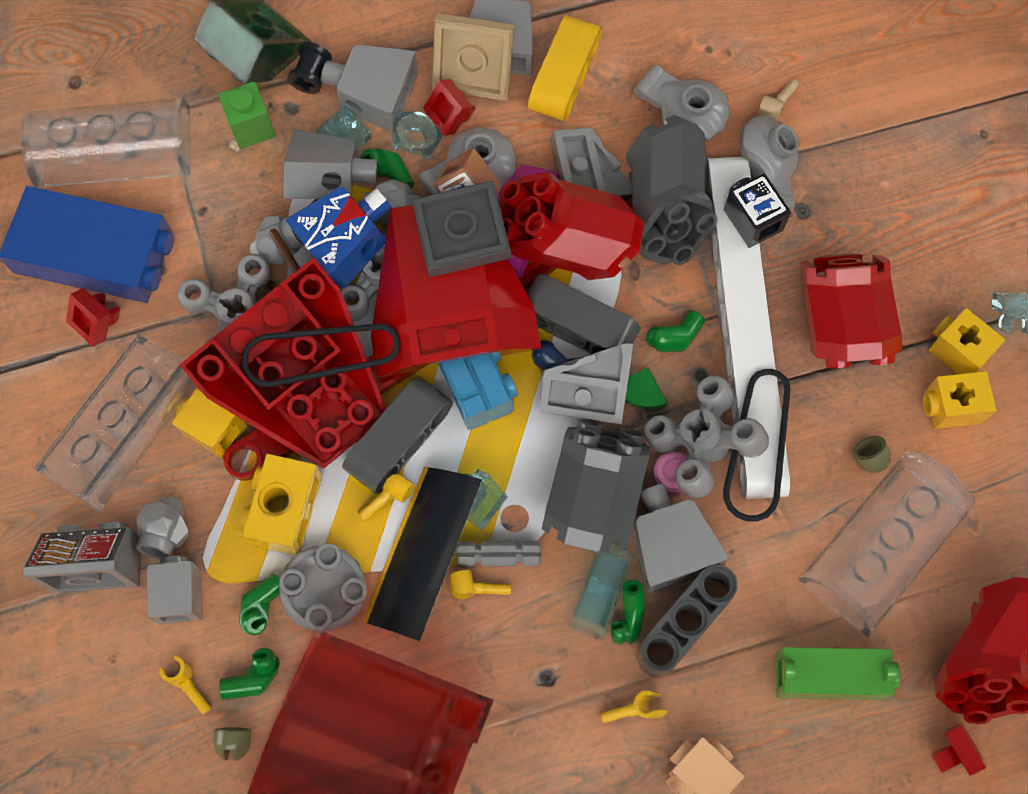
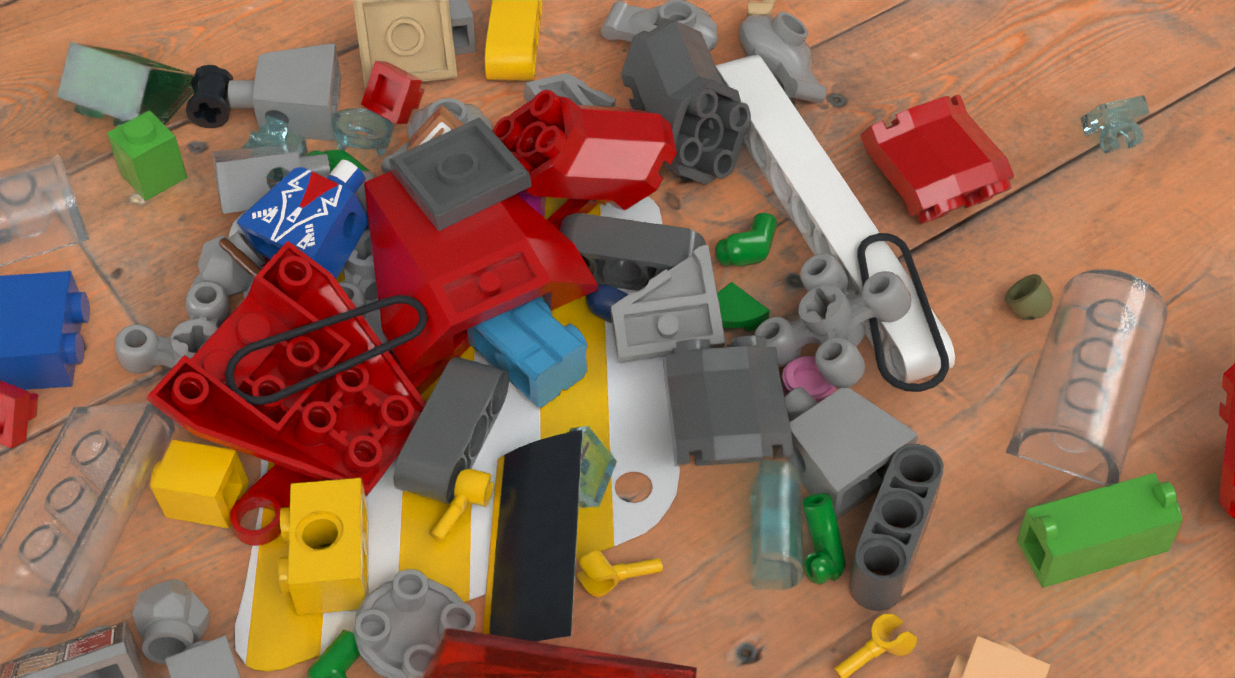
camera: 20 degrees left, 20 degrees down
(498, 553) = (631, 524): light grey axle -> none
(756, 209) = (791, 86): black brick -> none
(970, 389) = (1099, 218): yellow brick -> none
(979, 337) = (1076, 166): yellow brick -> none

